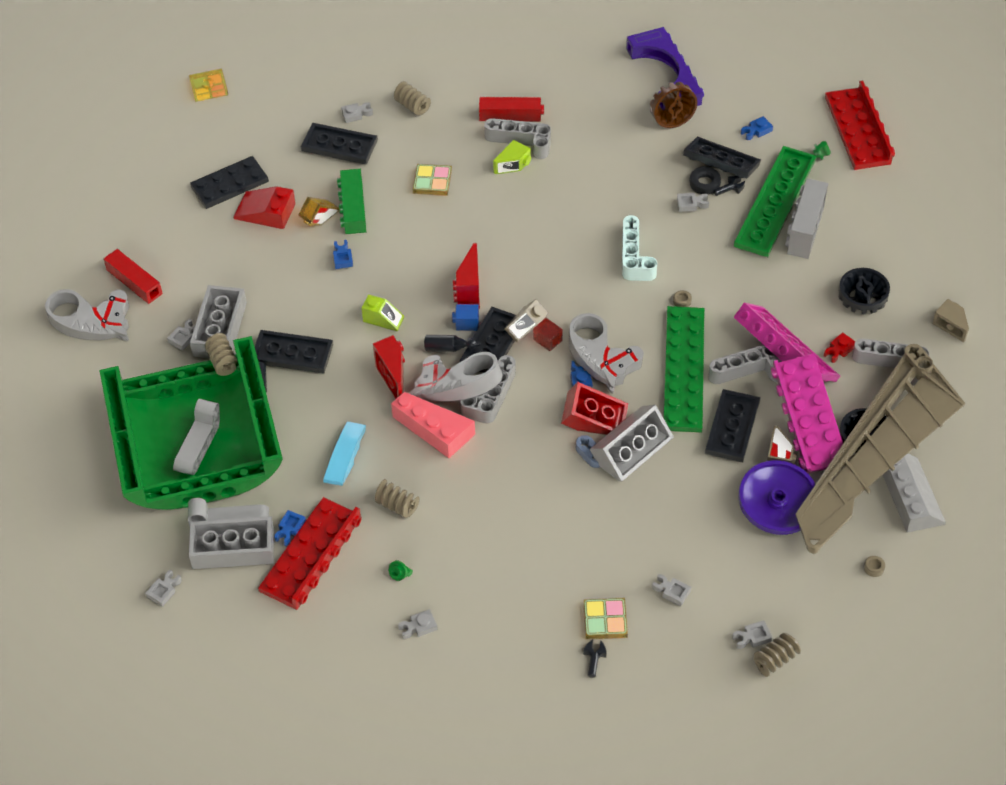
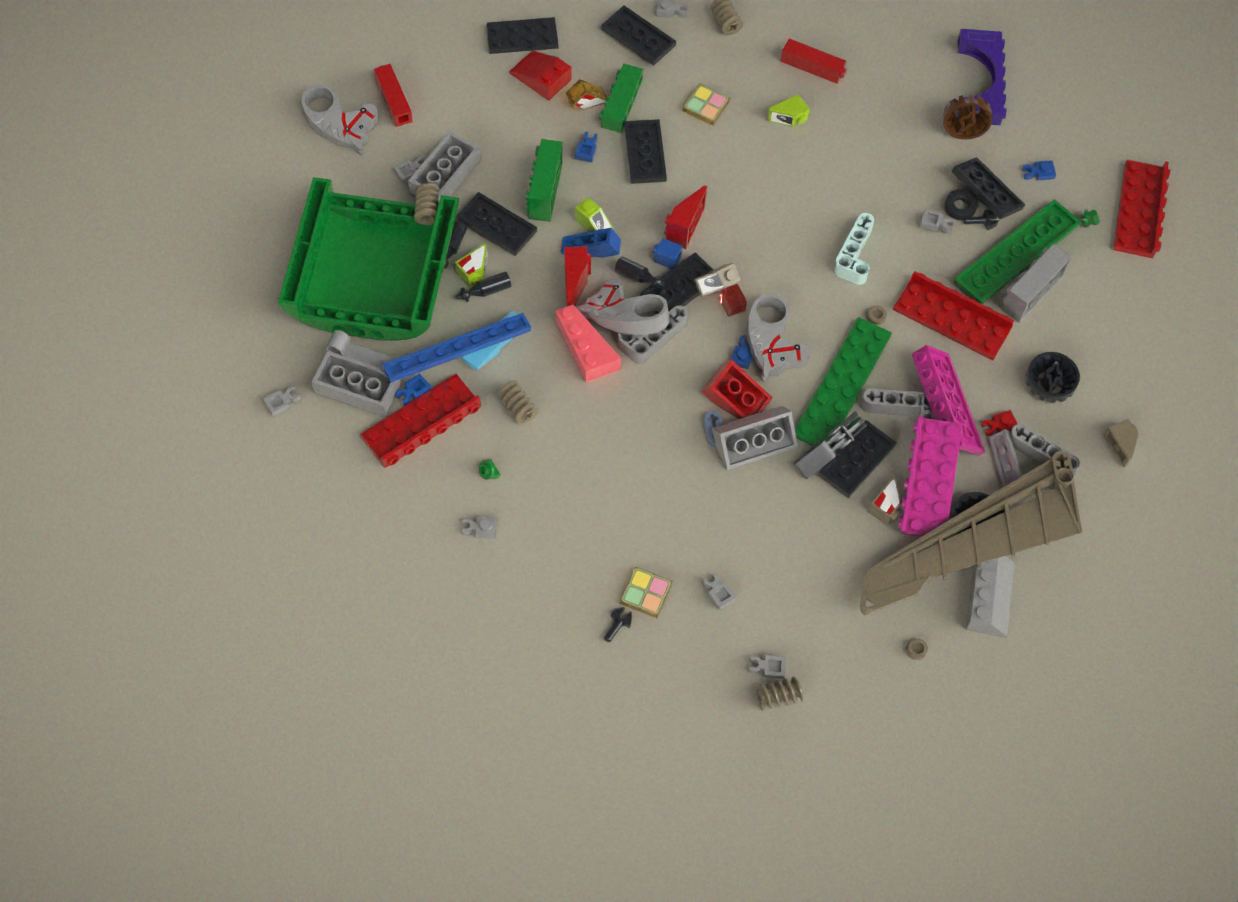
camera: 20 degrees right, 10 degrees up
(199, 437) = (372, 275): light grey beam -> none
(289, 397) = (472, 266): none -> slope
(312, 409) = (486, 287): none -> black wheel
(314, 471) = (456, 347): none -> blue plate
(319, 295) = (544, 180): none -> green brick
(398, 238) = (645, 151): none -> black plate
(403, 328) = (599, 242): none -> blue slope
(526, 133) = (811, 89): light grey beam -> none
(700, 430) = (821, 452): none -> dark grey arm
(750, 273) = (954, 315): none -> red bracket
(773, 494) = (856, 542): dark purple dish -> none
(861, 373) = (1005, 457): none -> light grey plate

